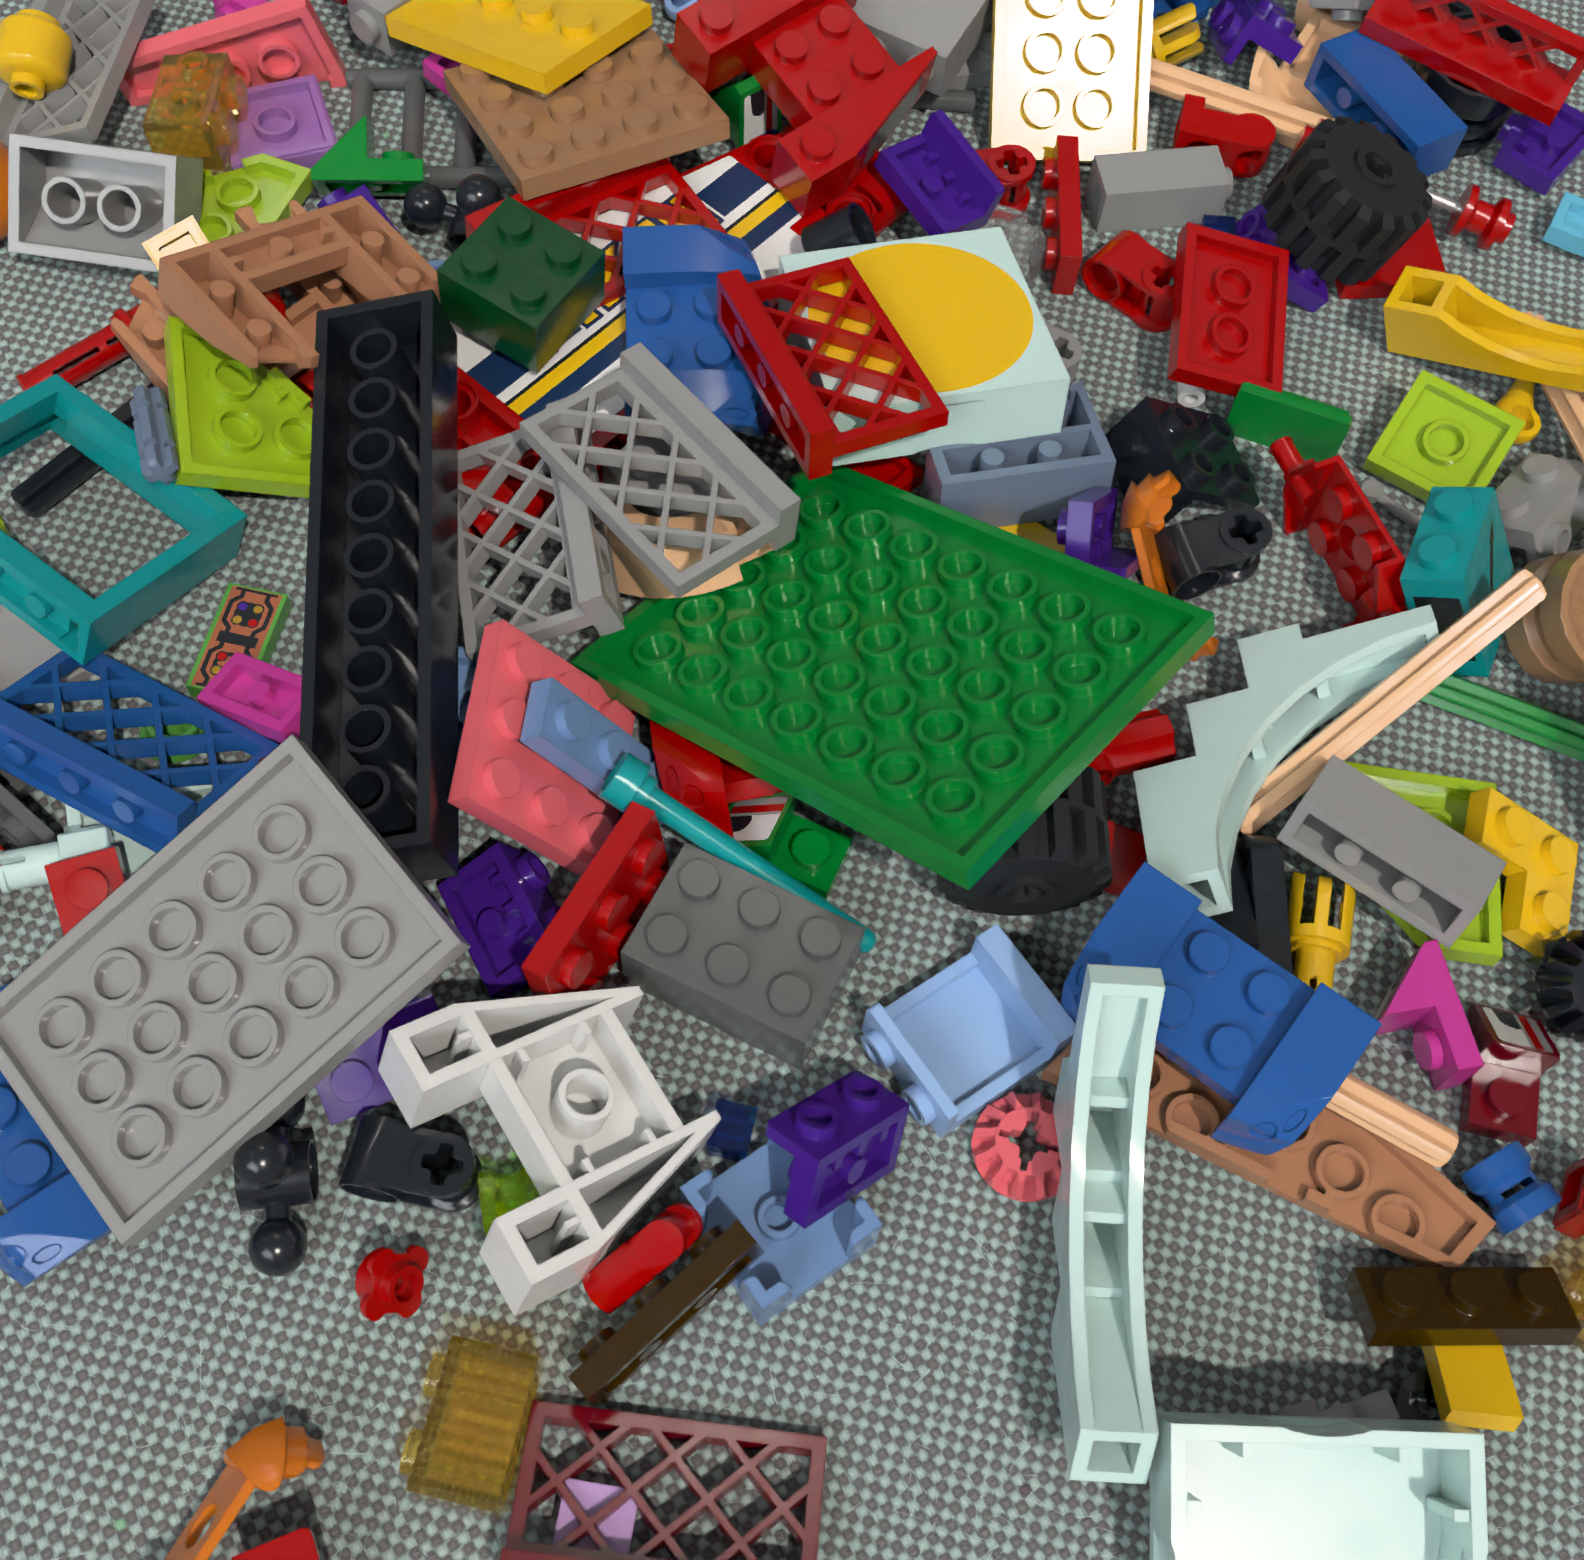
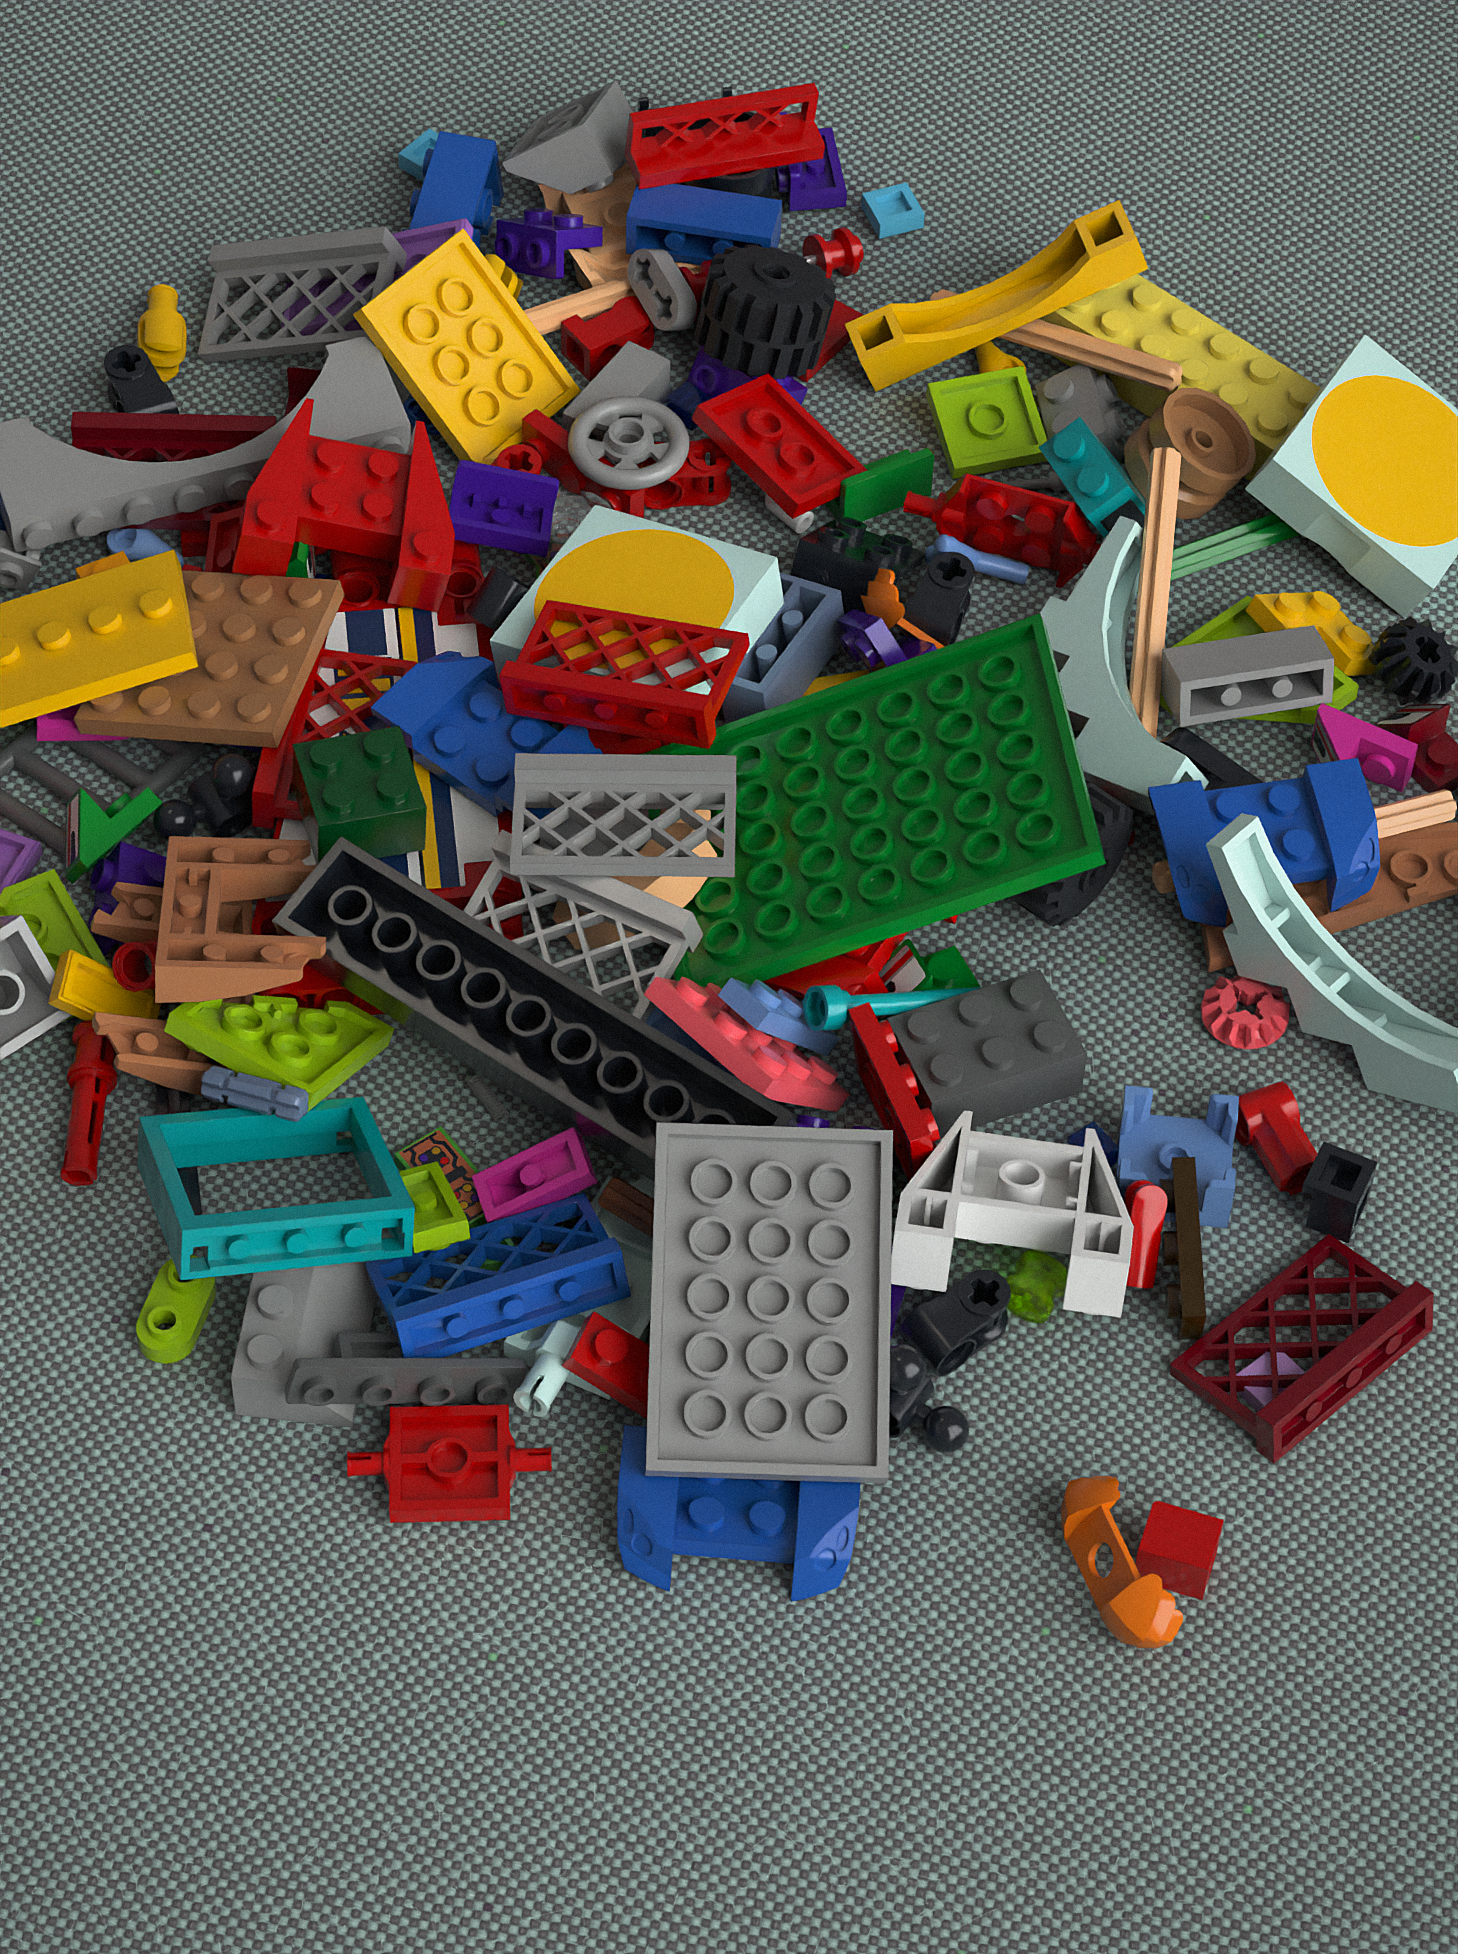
camera: 45 degrees left, 10 degrees down
(160, 641) = (438, 1214): none -> lime plate
(391, 1281) = (1027, 1381): red plate -> none
(472, 1426) = (1162, 1396): clear yellow brick -> none
(840, 1143) = (1159, 1071): dark purple bracket -> none
(865, 1409) = (1337, 1191): none -> black brick
(901, 1280) = (1272, 1126): none -> red piece
(968, 1033) = (1146, 980): light blue panel -> none
(1109, 214) = (628, 442): none -> light grey plate
(1288, 123) = (662, 289): none -> light grey beam
(1293, 548) = (982, 561): none -> medium blue piece
(1316, 944) = (1251, 749): yellow arm -> none

